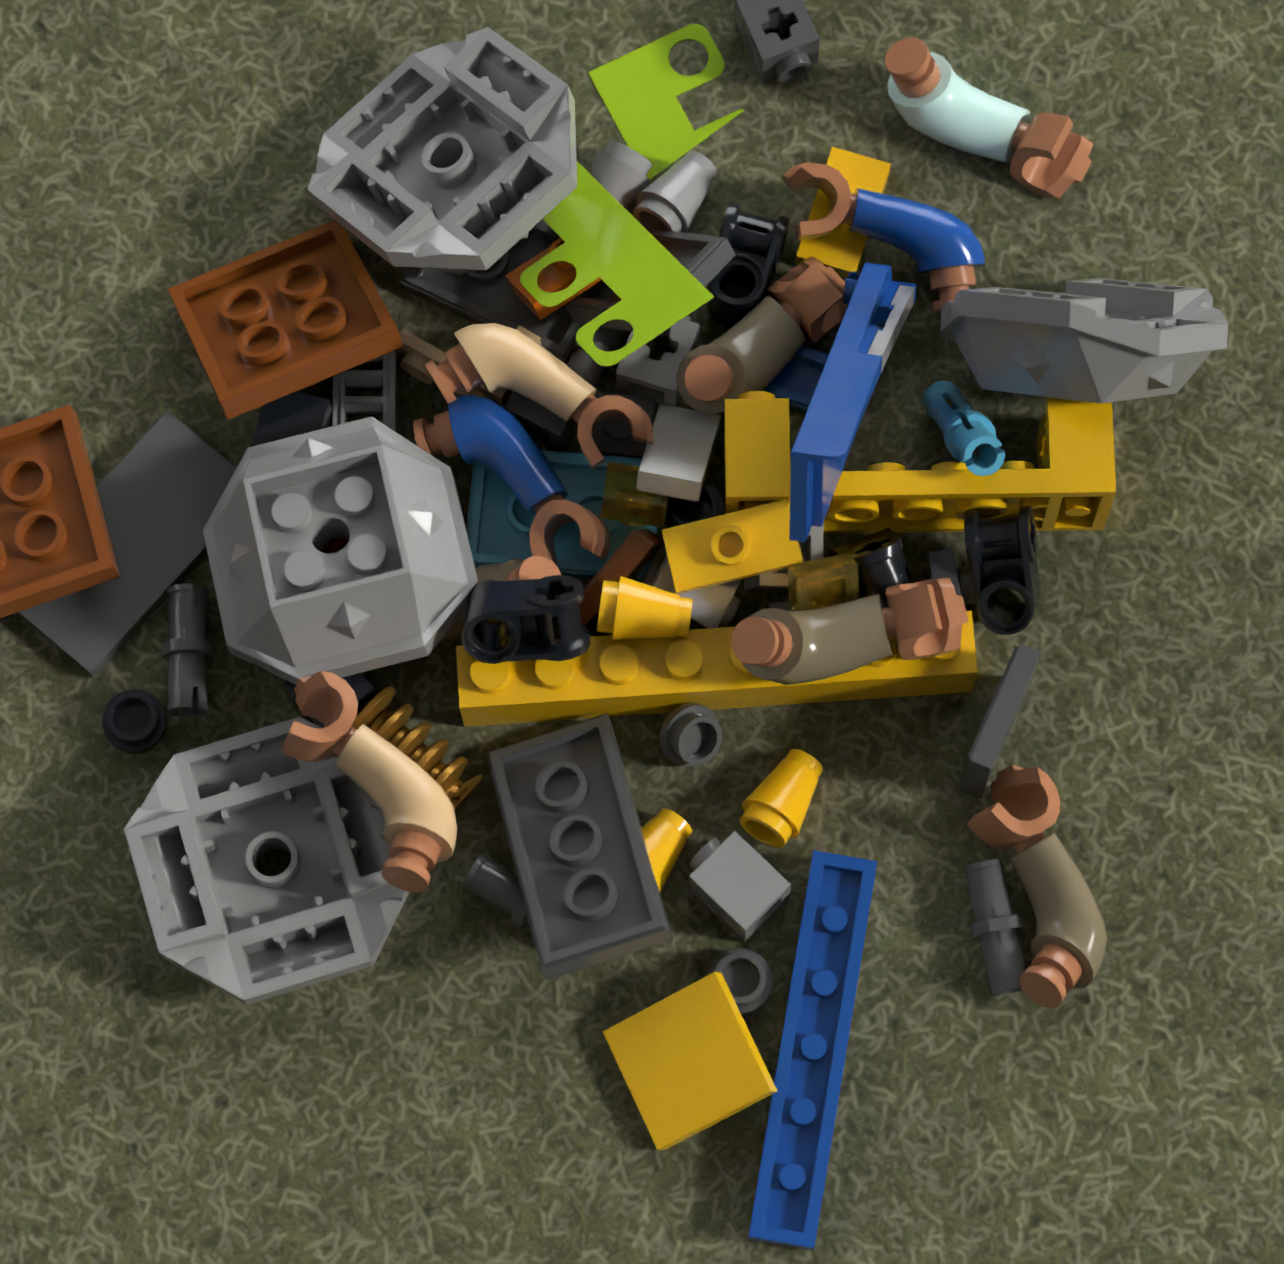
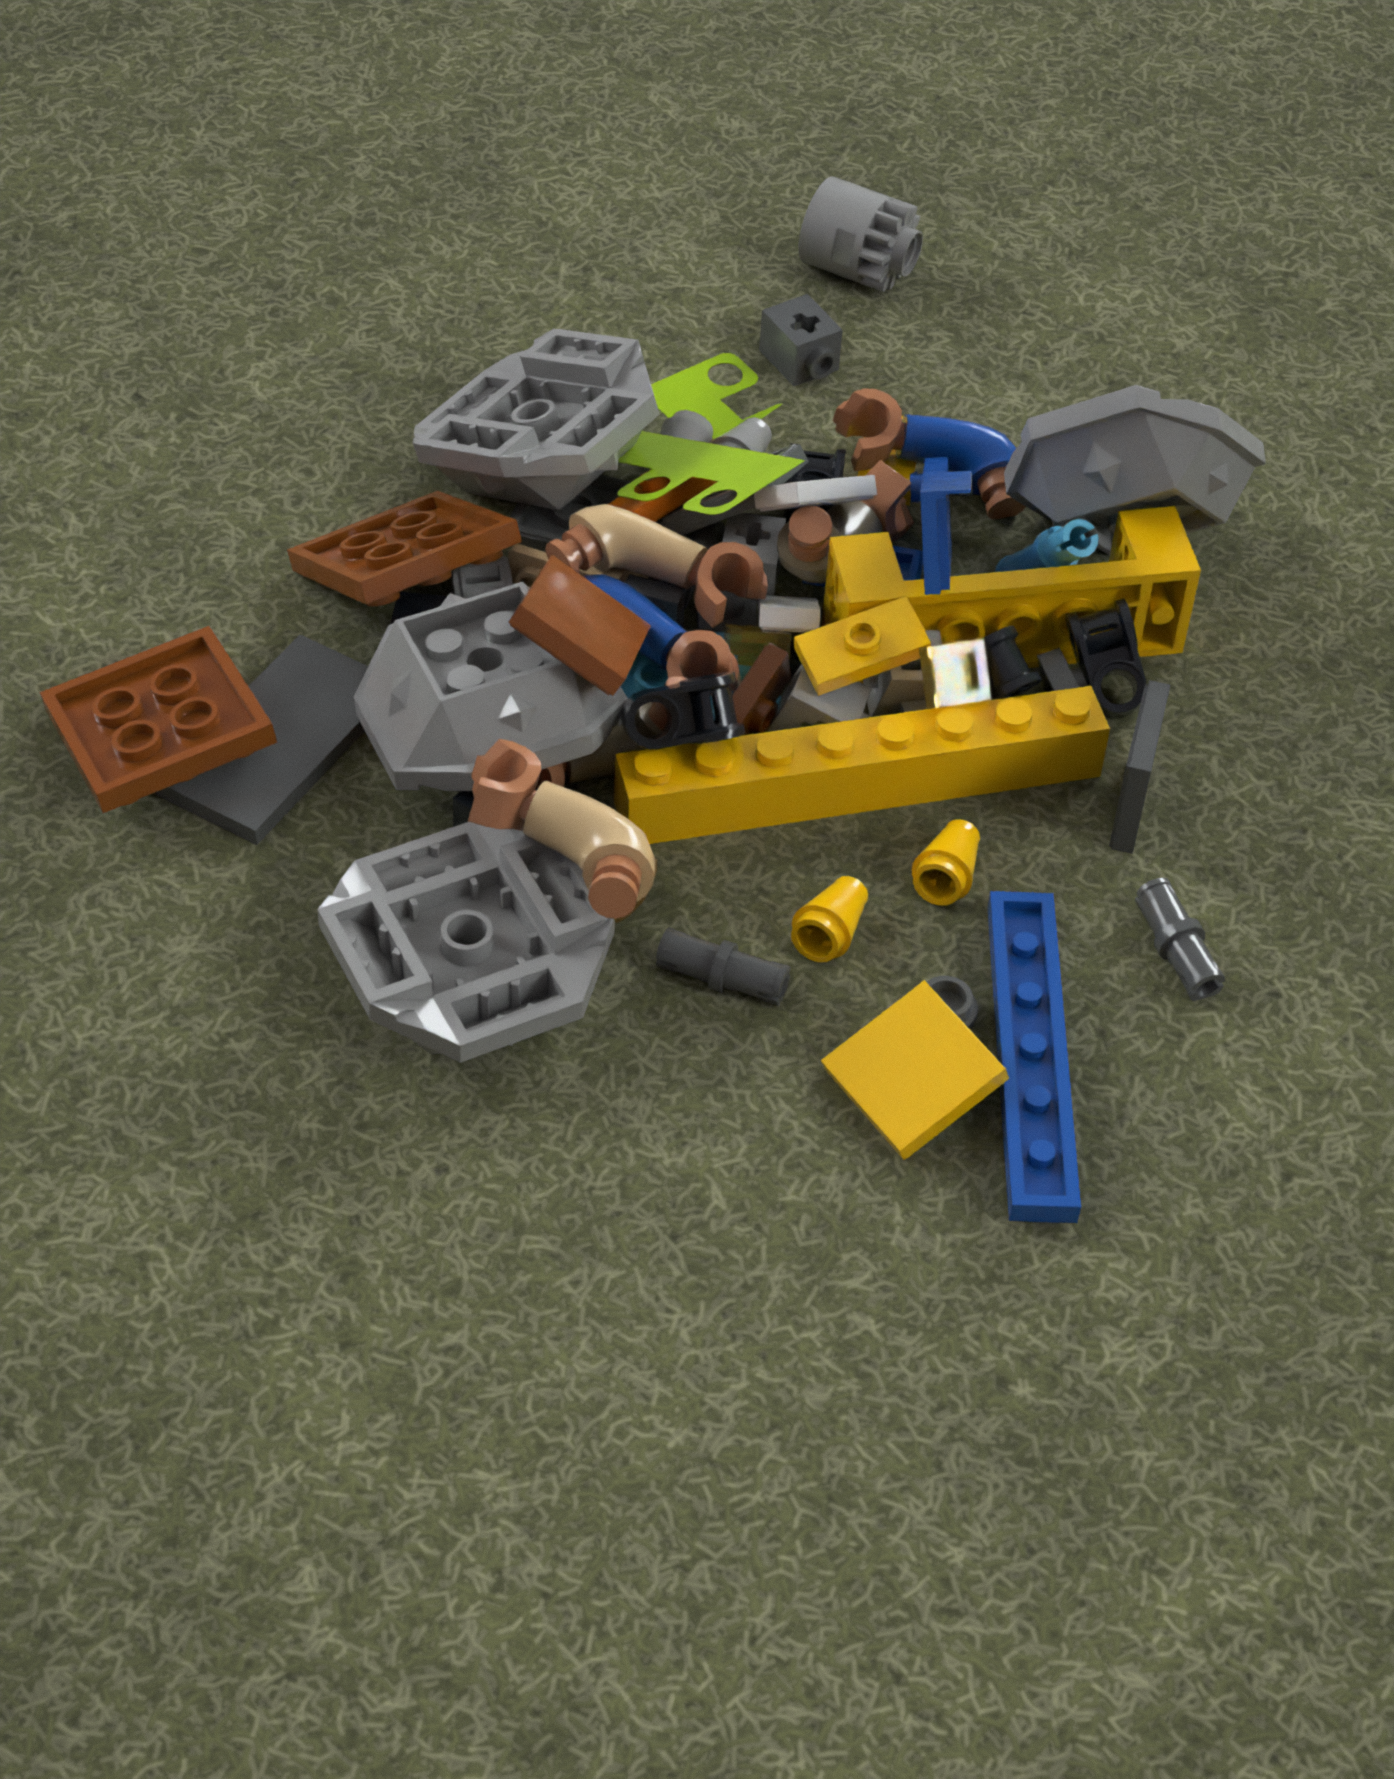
camera: 15 degrees left, 25 degrees down
(134, 721) = (304, 865): black plate -> none
(187, 650) = (348, 805): dark grey pin -> none
(432, 513) = (580, 625): none -> dark orange tile
(578, 847) = (767, 902): dark grey tile -> none
(642, 611) = (788, 702): yellow cone -> none
(690, 735) = (849, 821): dark grey plate -> none
(730, 322) = (815, 493): none -> white tile
(737, 884) = (925, 926): light grey brick -> none
(846, 636) = (965, 701): piece -> none
(956, 114) = (959, 379): piece -> none
(1069, 923) = (1237, 907): piece -> none

